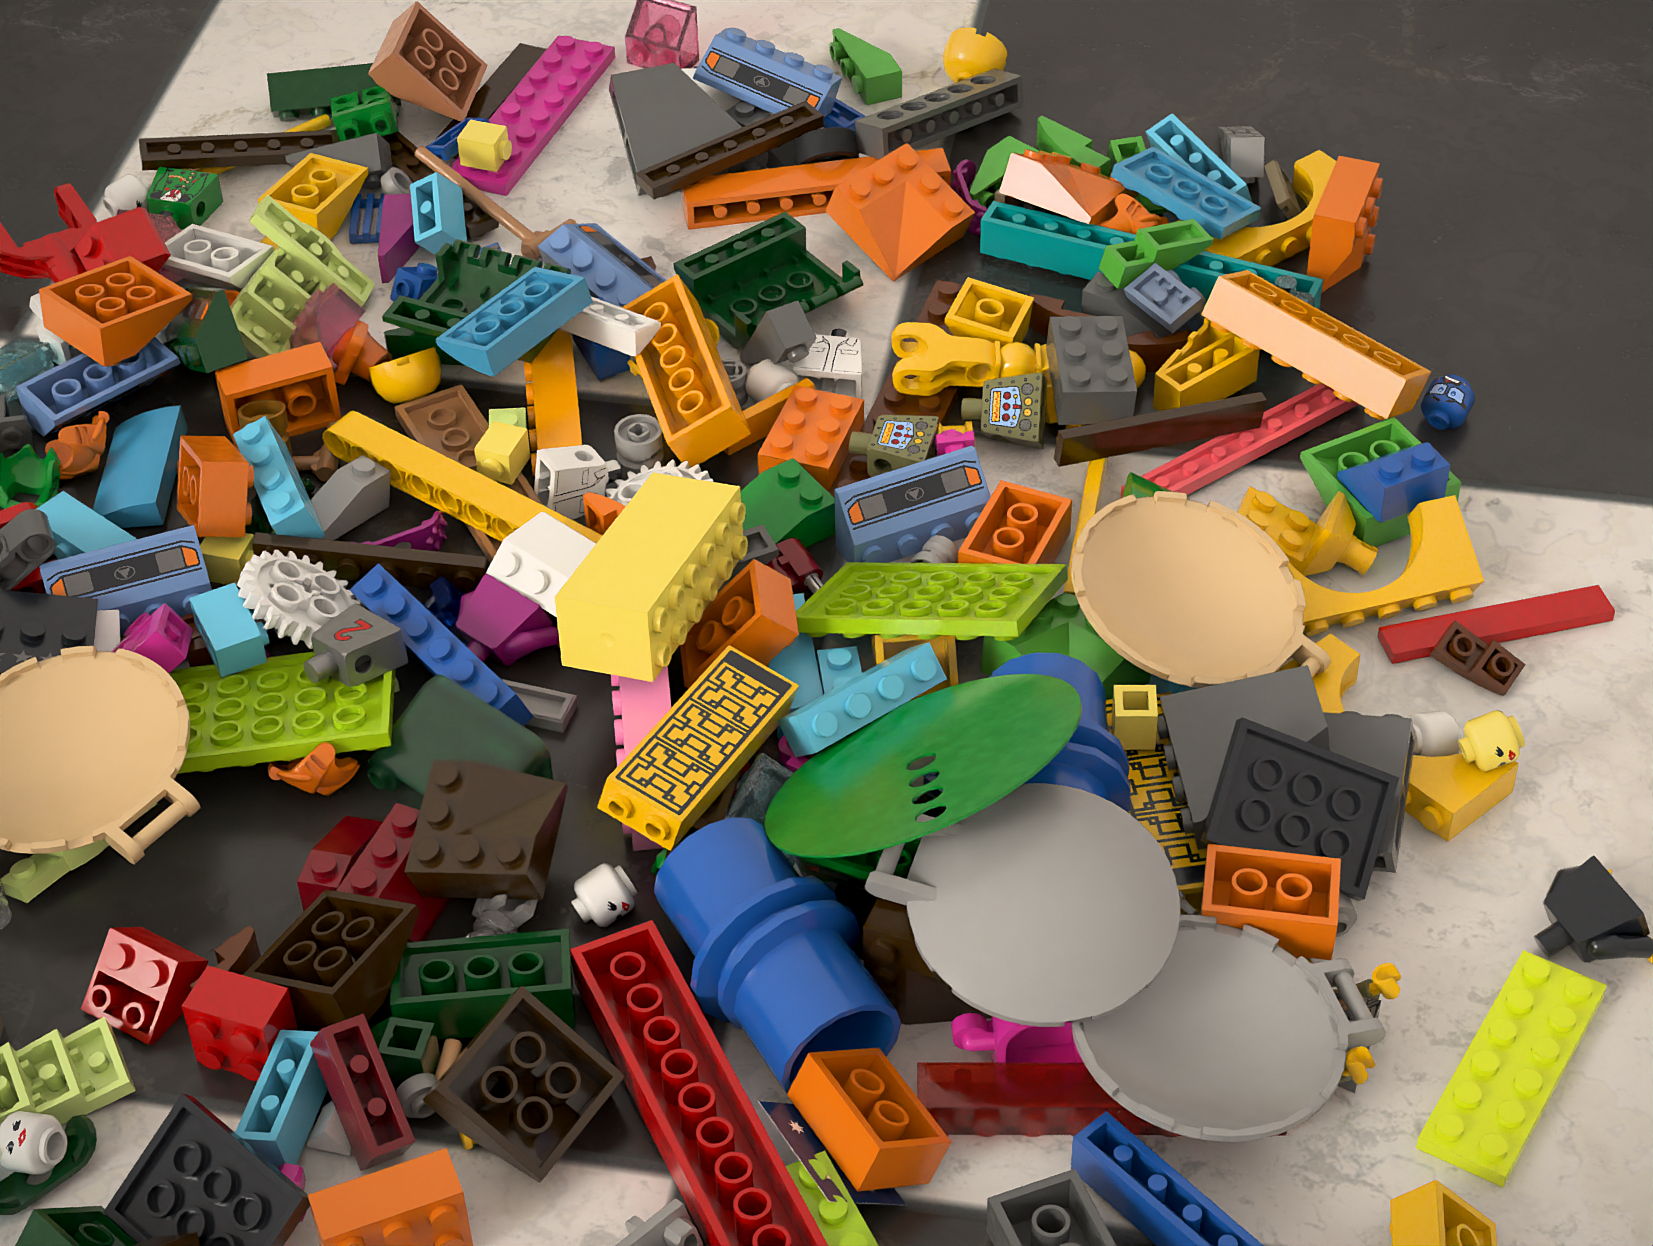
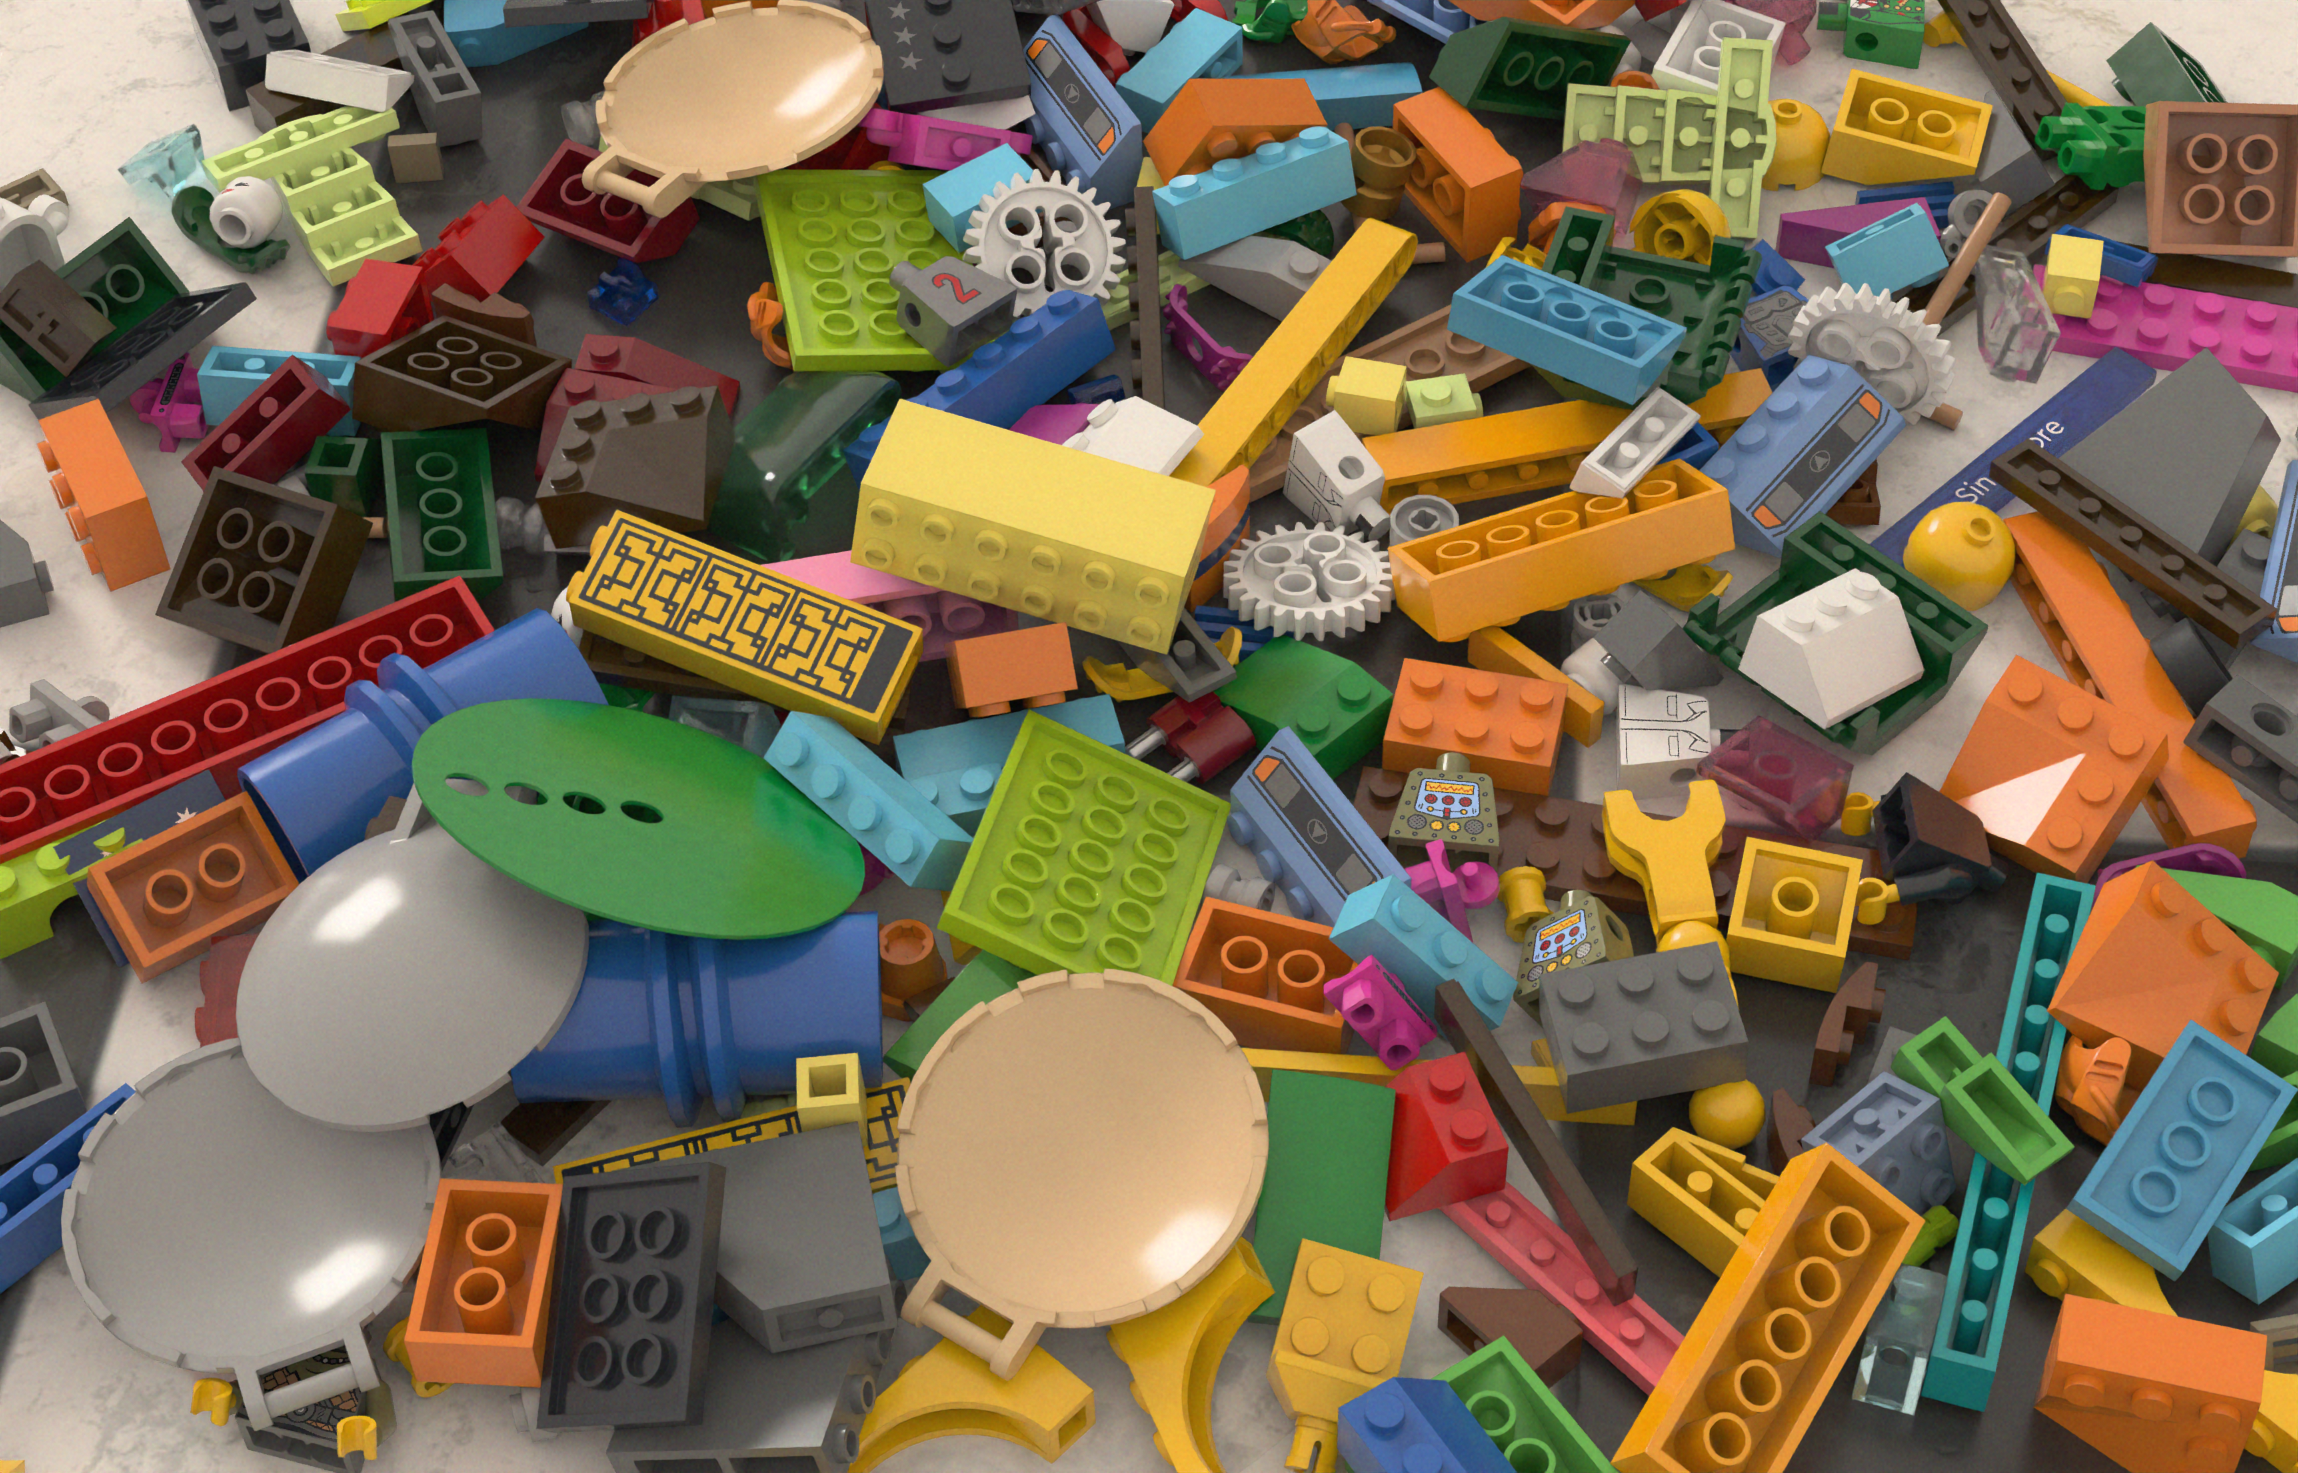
camera: 85 degrees right, 5 degrees up
(112, 892) = (603, 220): none -> dark red slope
(214, 888) = (623, 293): none -> clear blue tile
(375, 294) = (1679, 226): none -> yellow cylinder
(509, 179) = (2012, 316): none -> clear slope
(542, 210) = (1880, 343): none -> white gear
(613, 204) = (2054, 426): none -> clear blue tile
(701, 223) = (1962, 553): none -> yellow cylinder
(792, 271) = (1834, 649): none -> white slope
(881, 309) = (1780, 777): none -> clear pink slope
(934, 266) = (1924, 847): none -> black torso
(1021, 458) = (1420, 949): none -> medium azure brick
(1065, 476) = (1381, 1012): none -> dark pink hips
(1154, 456) = (1442, 1139): none -> red slope
(1280, 467) = (1539, 1330): none -> reddish brown slope

